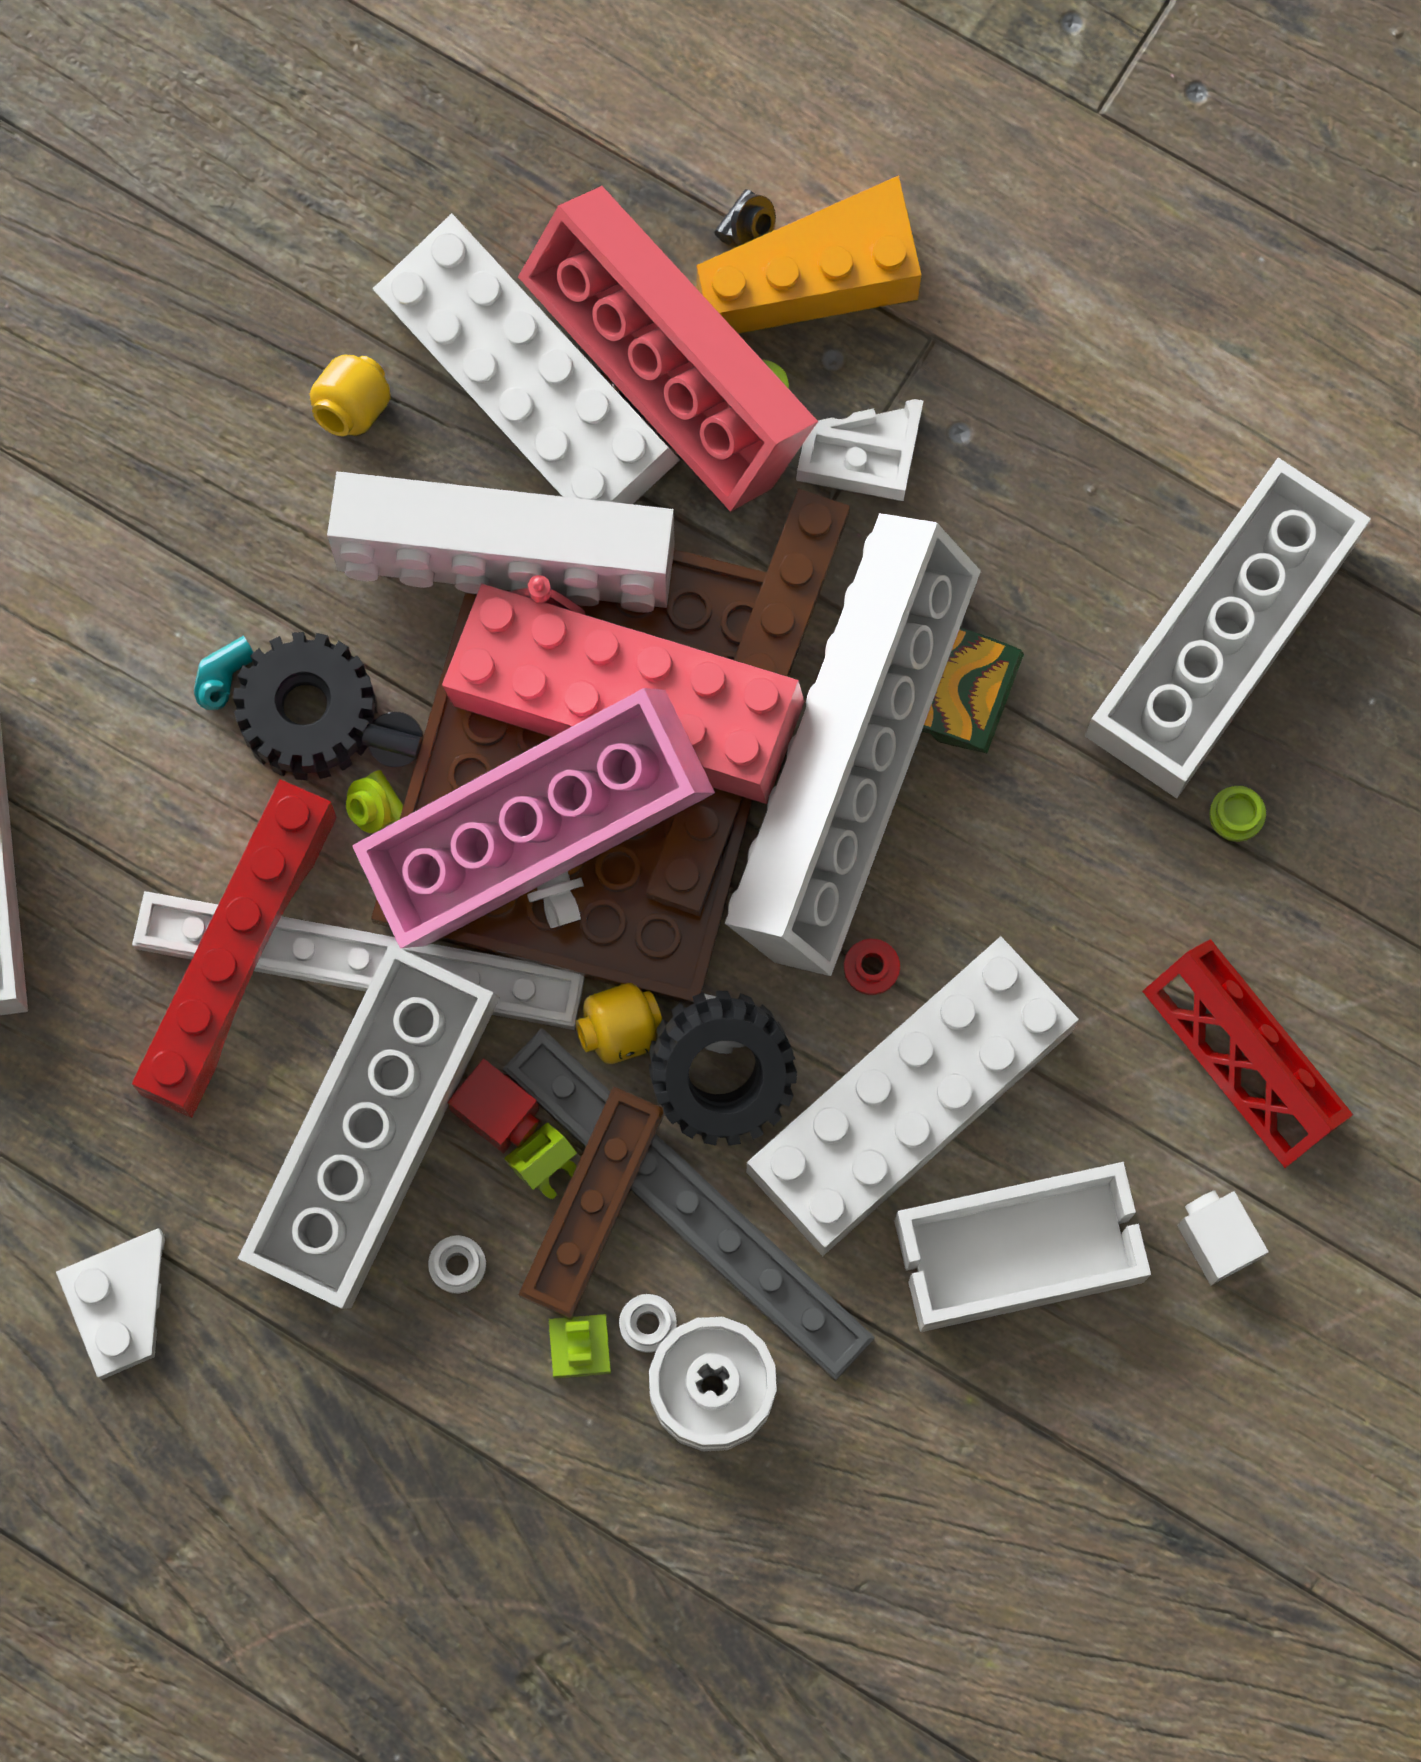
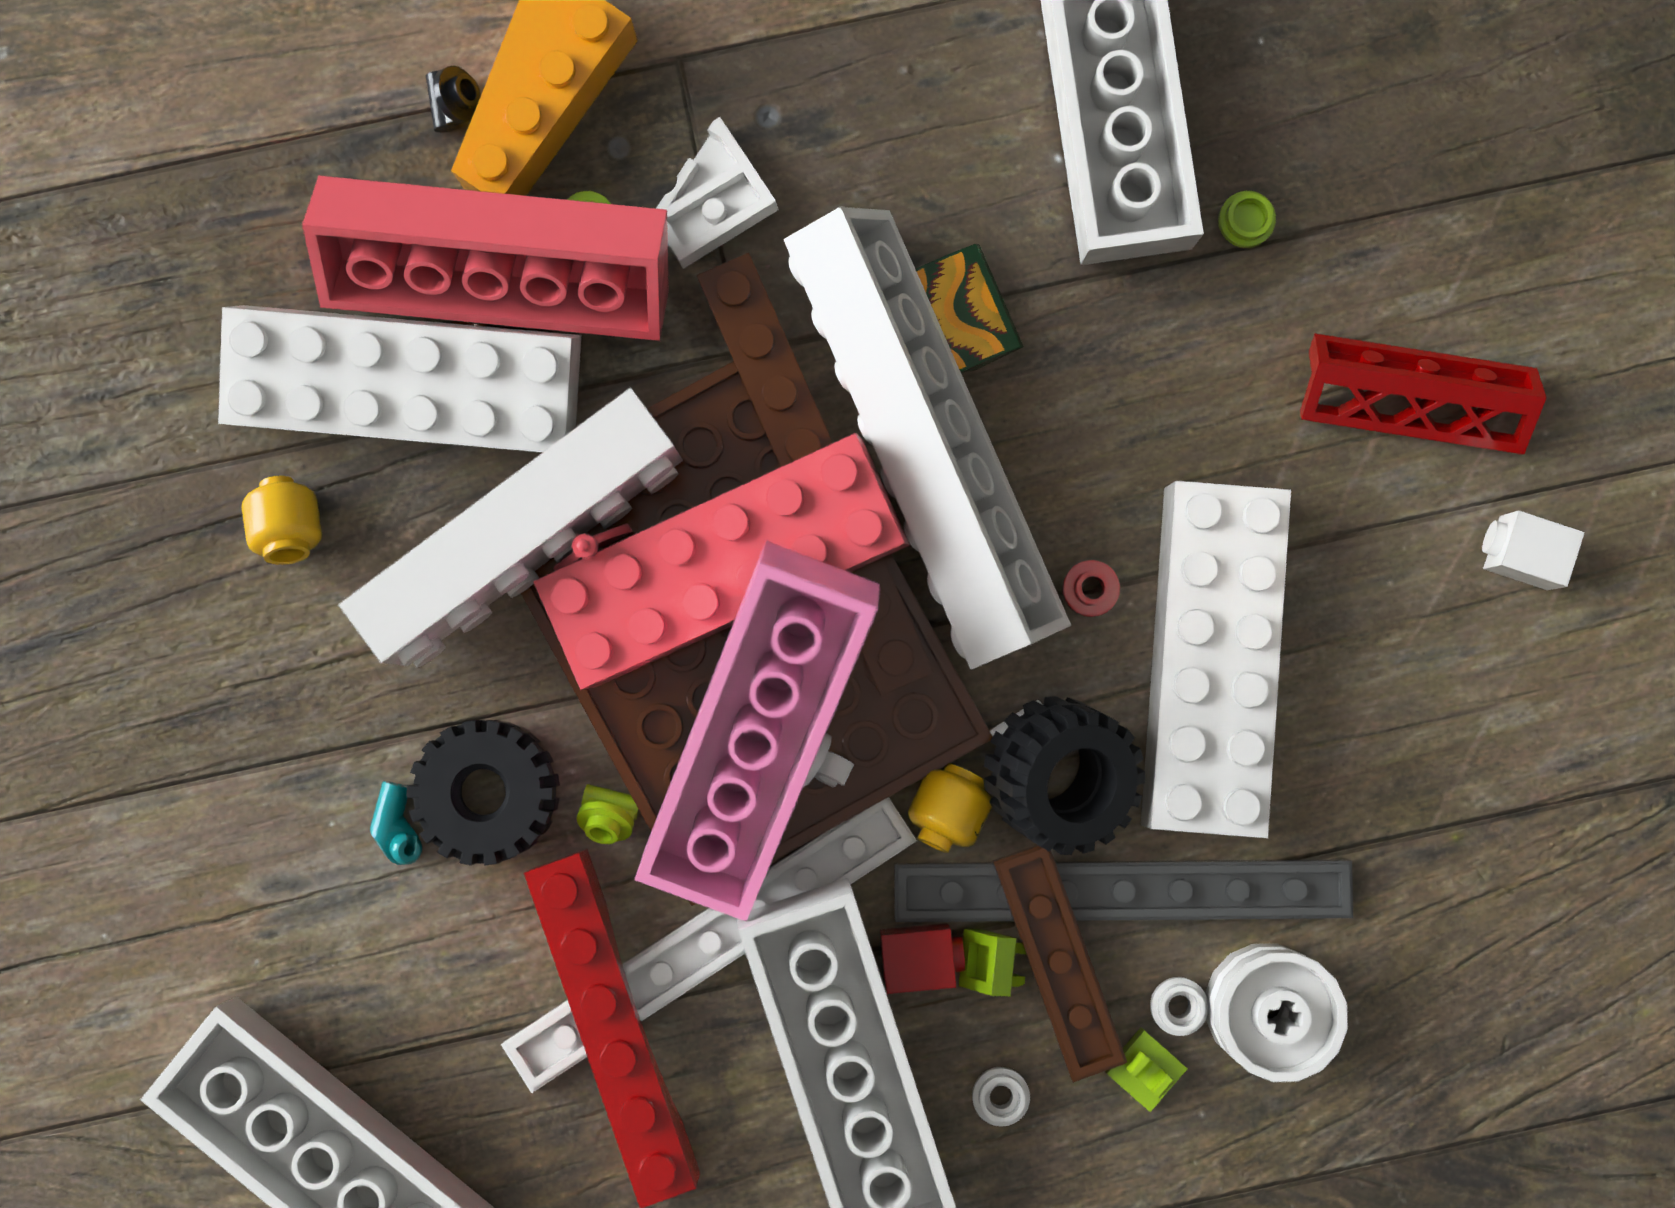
camera: 45 degrees left, 10 degrees up
(393, 739) = (574, 752): black plate -> none
(1021, 1246) = (1404, 697): white piece -> none

